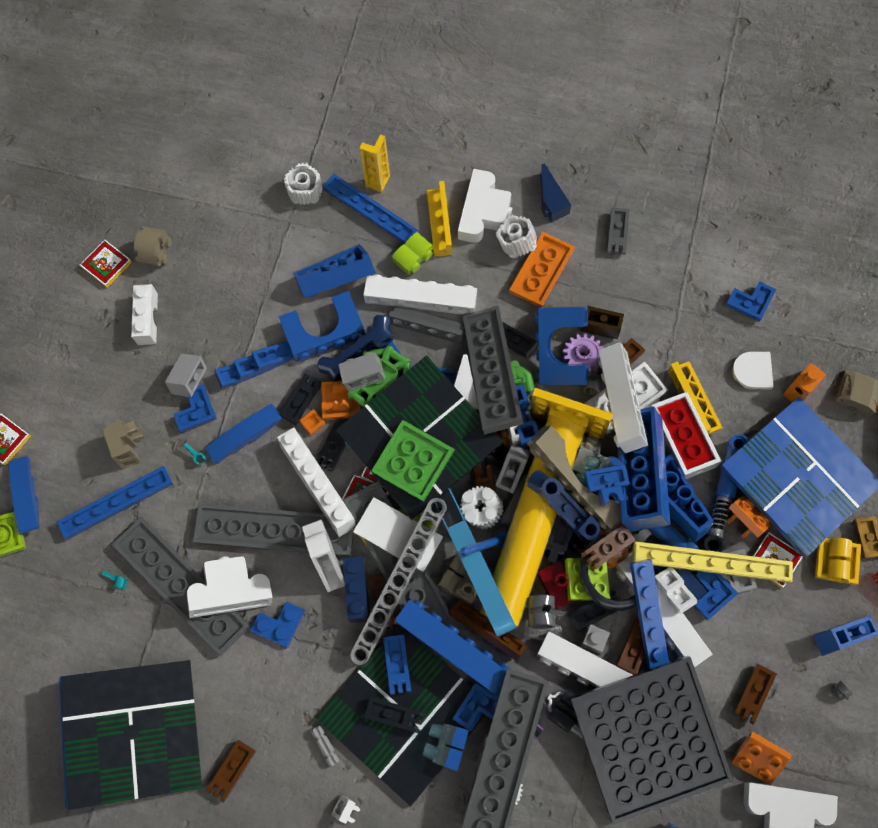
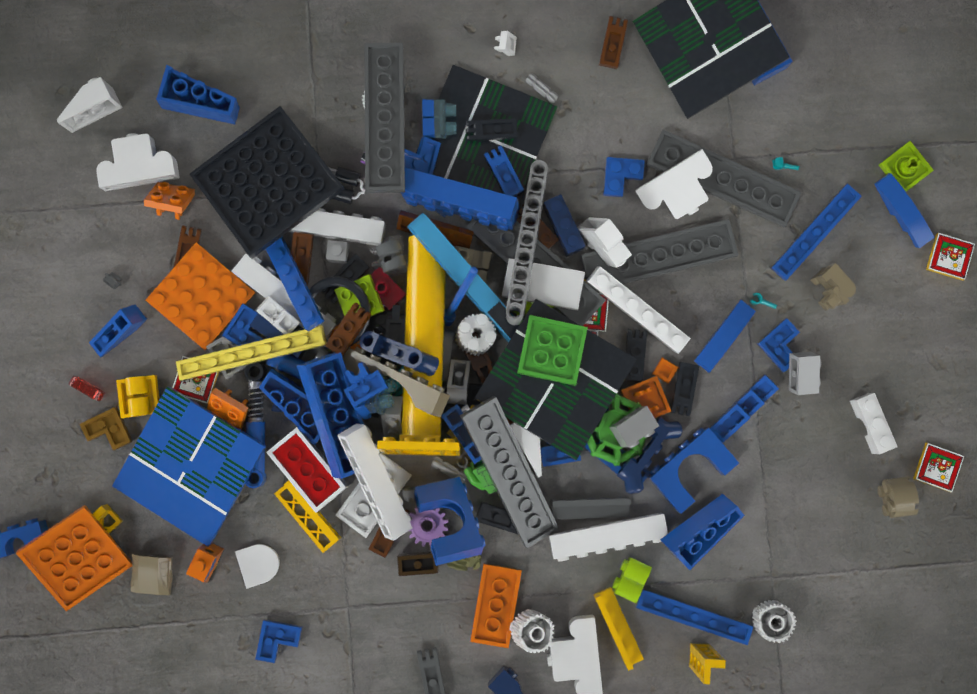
camera: 155 degrees right, 15 degrees up
(751, 642) = (200, 296): none -> orange plate

